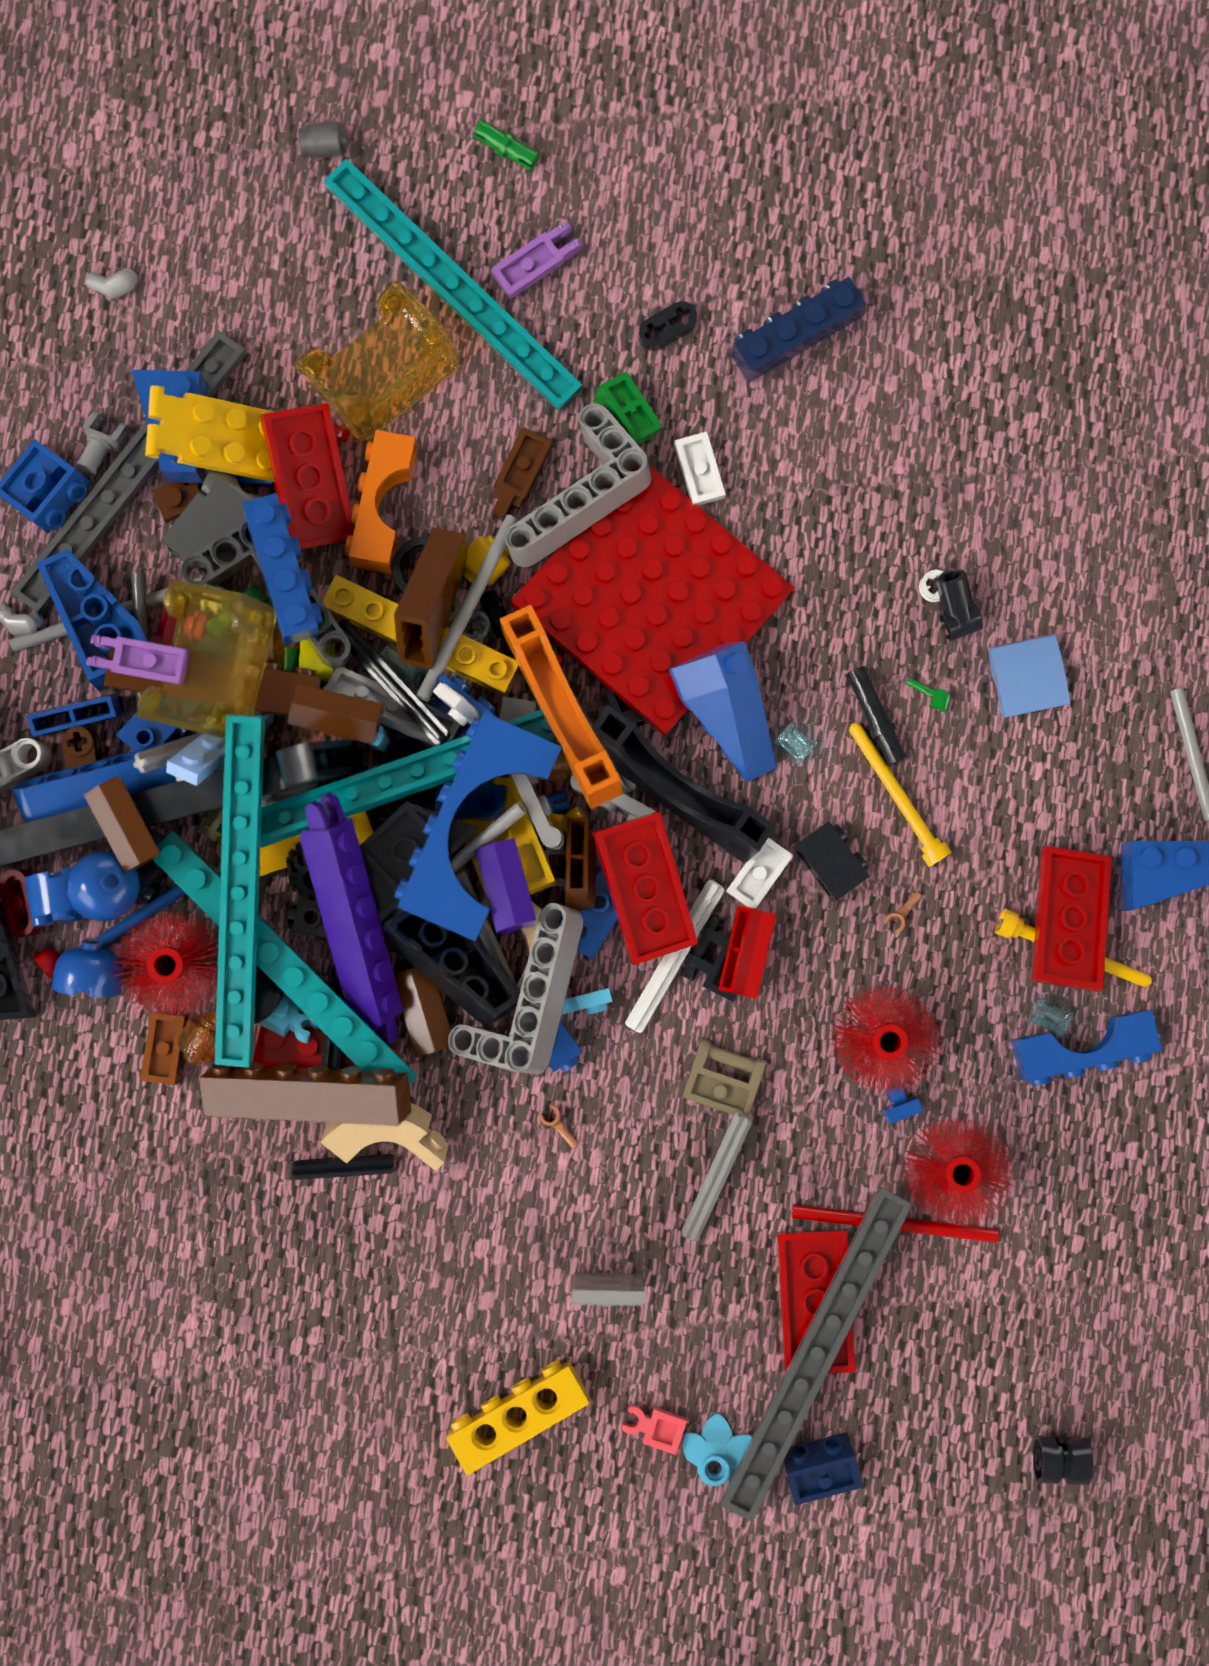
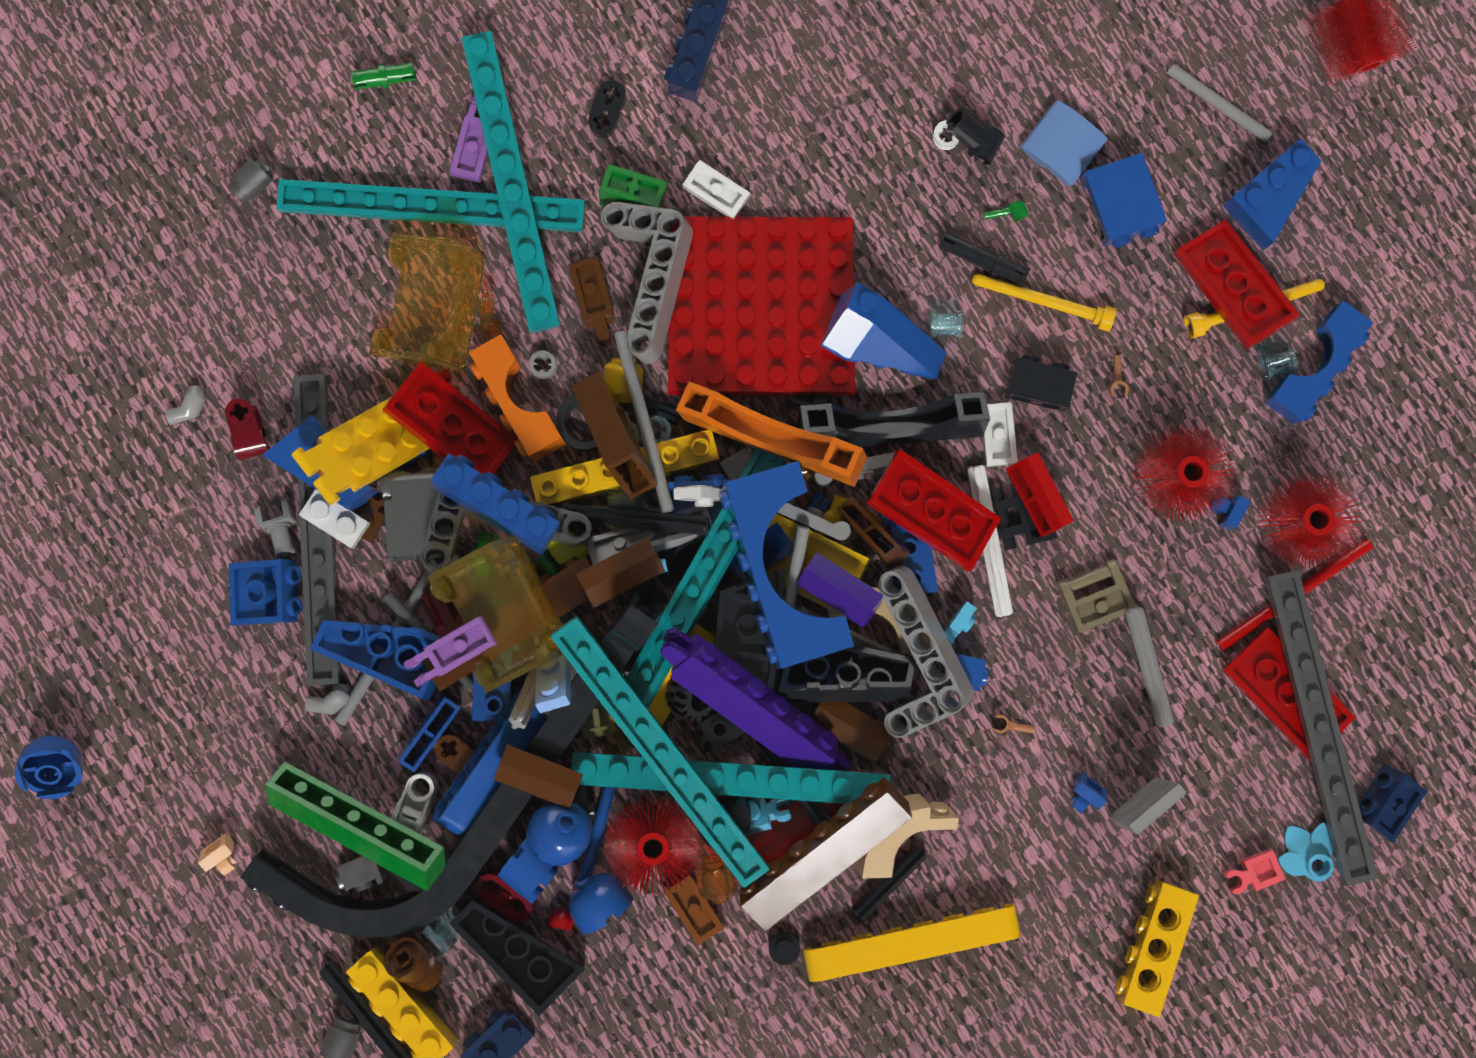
camera: 45 degrees left, 0 degrees up
(142, 345) = (246, 434): none -> dark red piece
(150, 483) = (334, 520): none -> white plate
(209, 1145) = (784, 948): none -> black plate
(317, 1234) = (911, 944): none -> yellow beam
(420, 413) = (486, 314): none -> clear orange arm
(422, 499) = (544, 355): none -> light grey bush
(533, 319) = (510, 182): none -> teal plate
(573, 1237) = (1088, 793): none -> blue tile
(1037, 767) = (1124, 200): none -> blue panel

